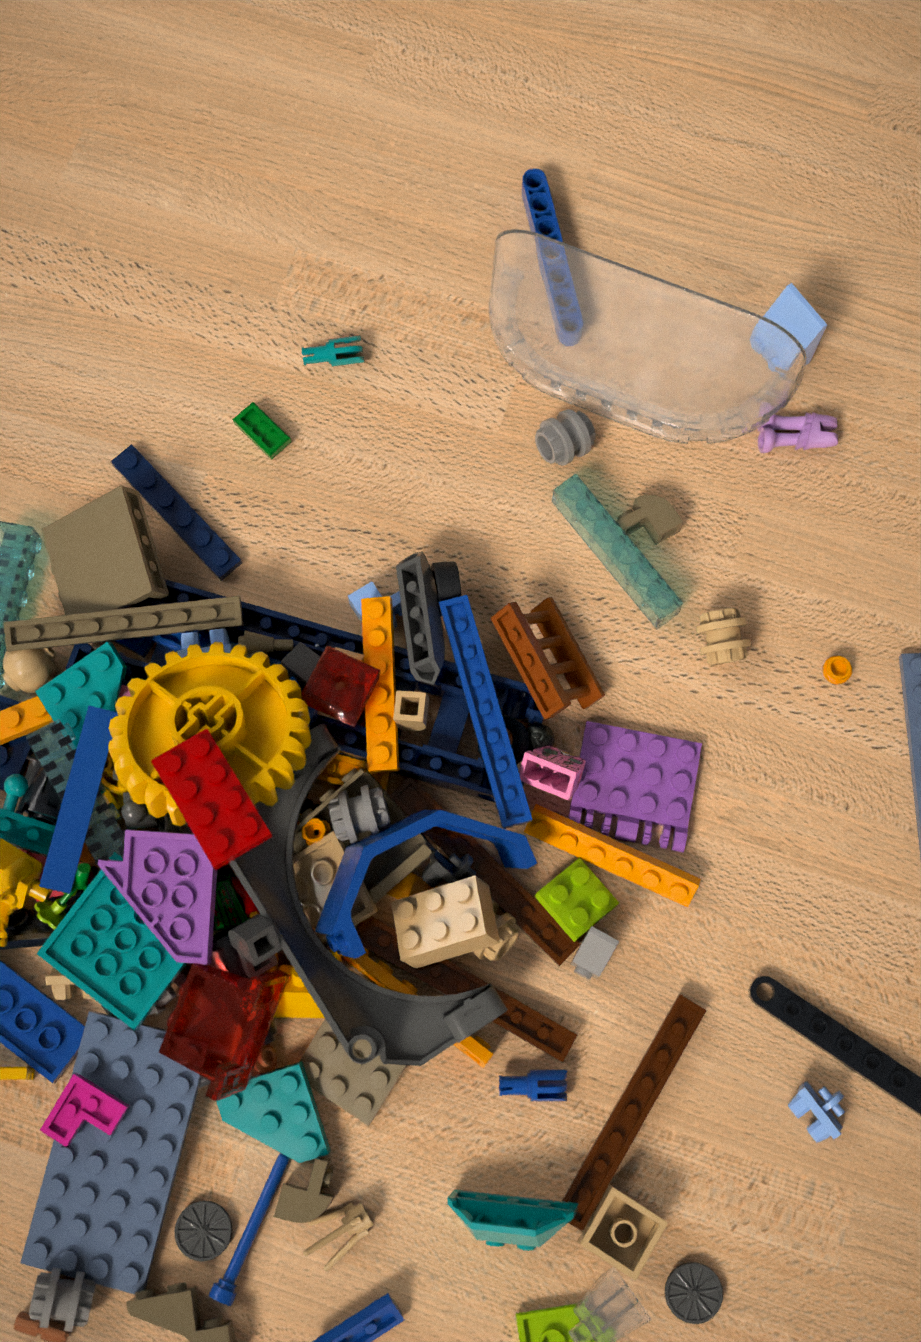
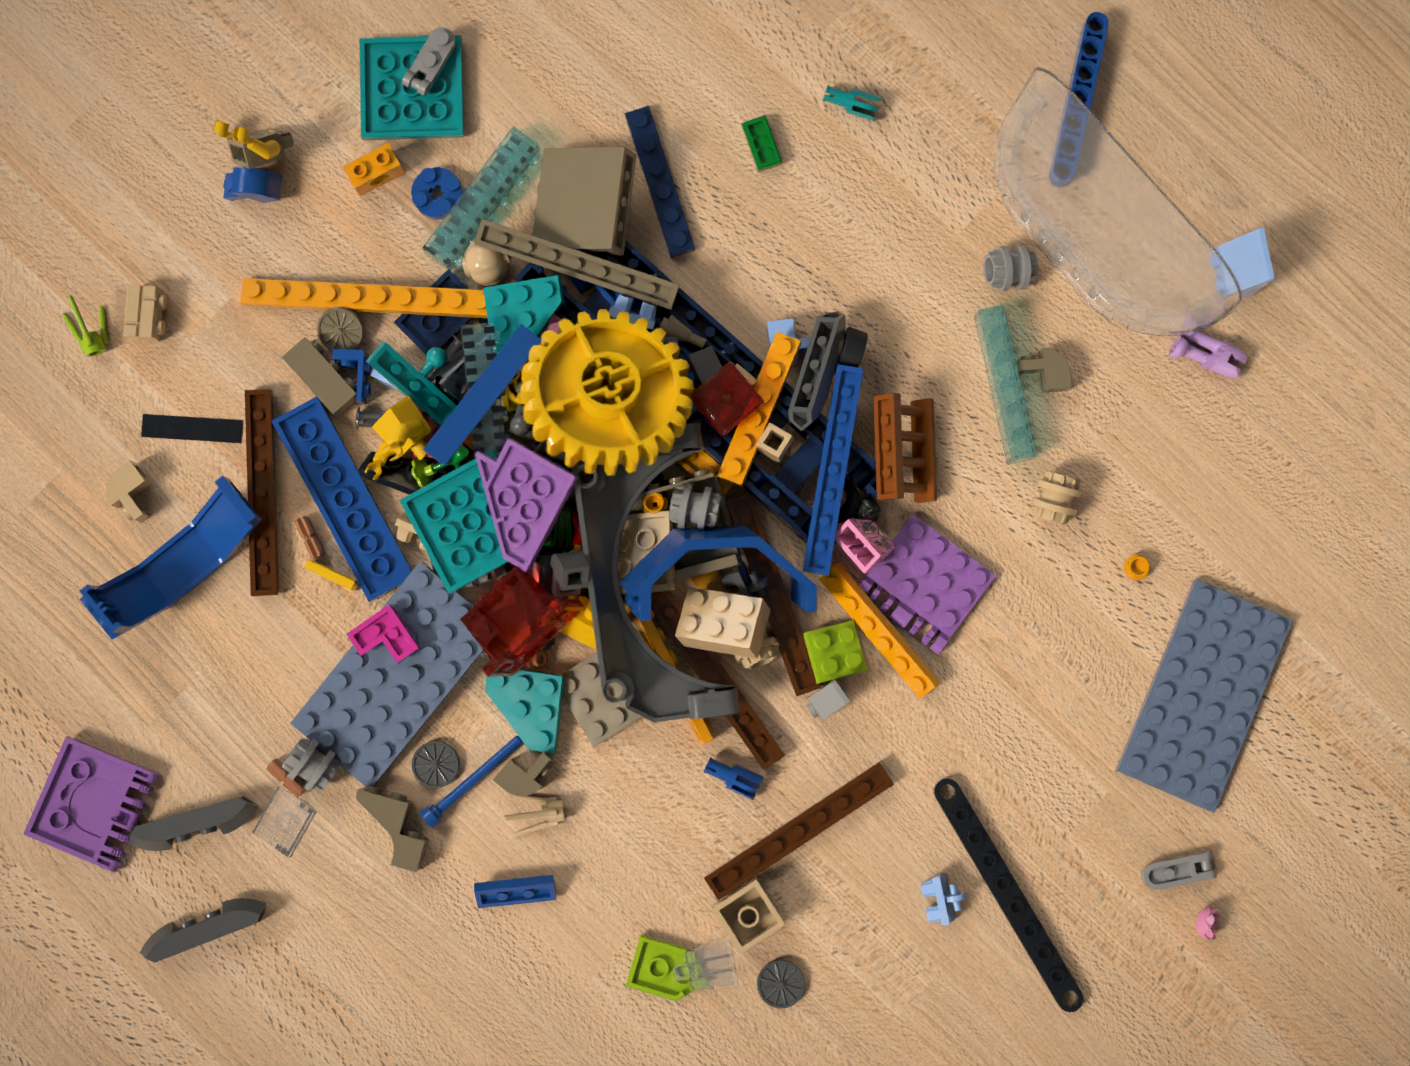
camera: 25 degrees right, 10 degrees up
(211, 799) = (585, 449): red plate -> none
(510, 1218) = (668, 865): teal wedge -> none

